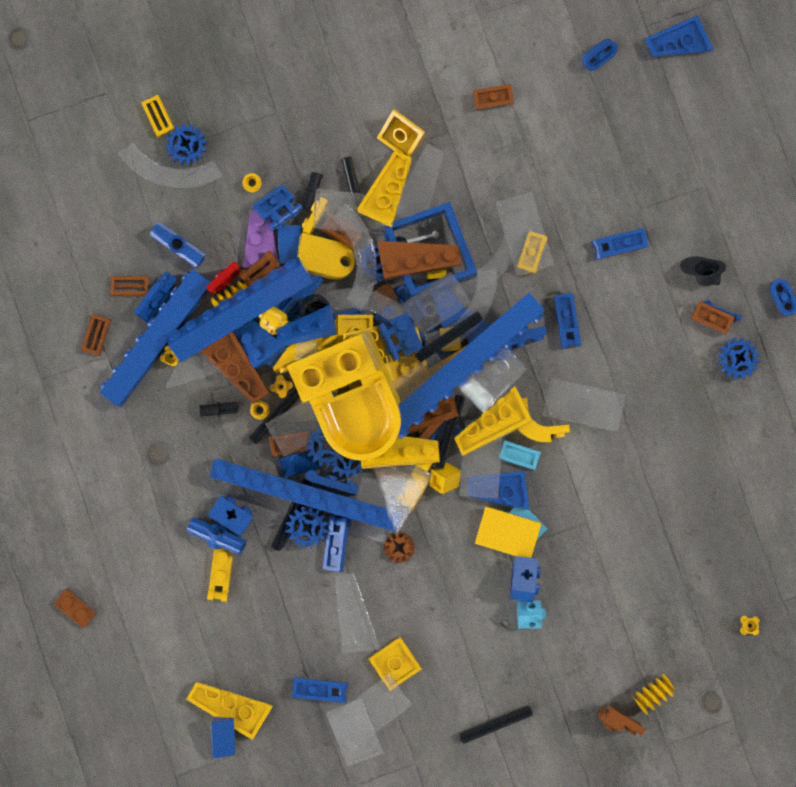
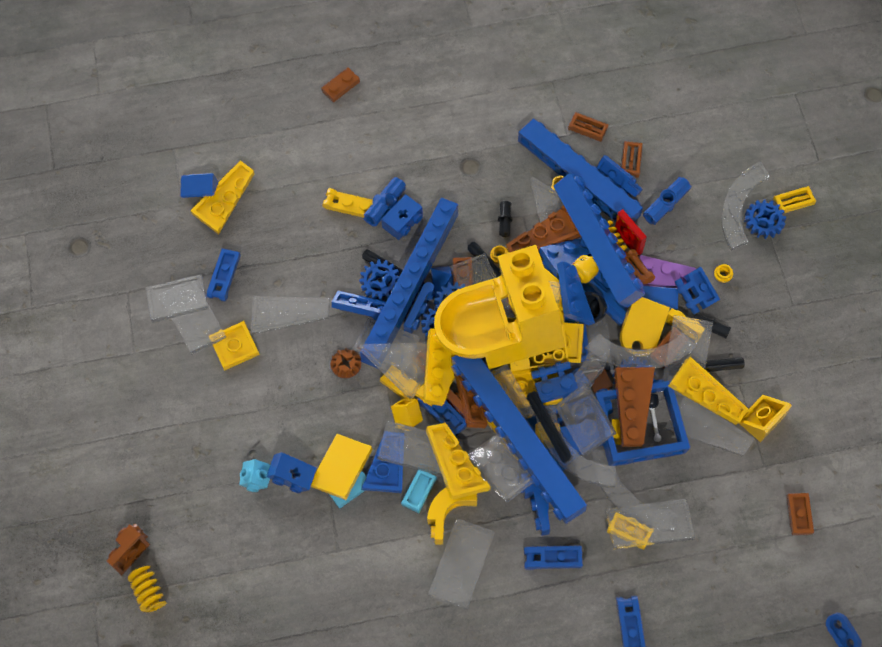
camera: 100 degrees right, 20 degrees down
(449, 433) = (451, 420): black axle -> none
(496, 724) = (153, 430): black axle -> none

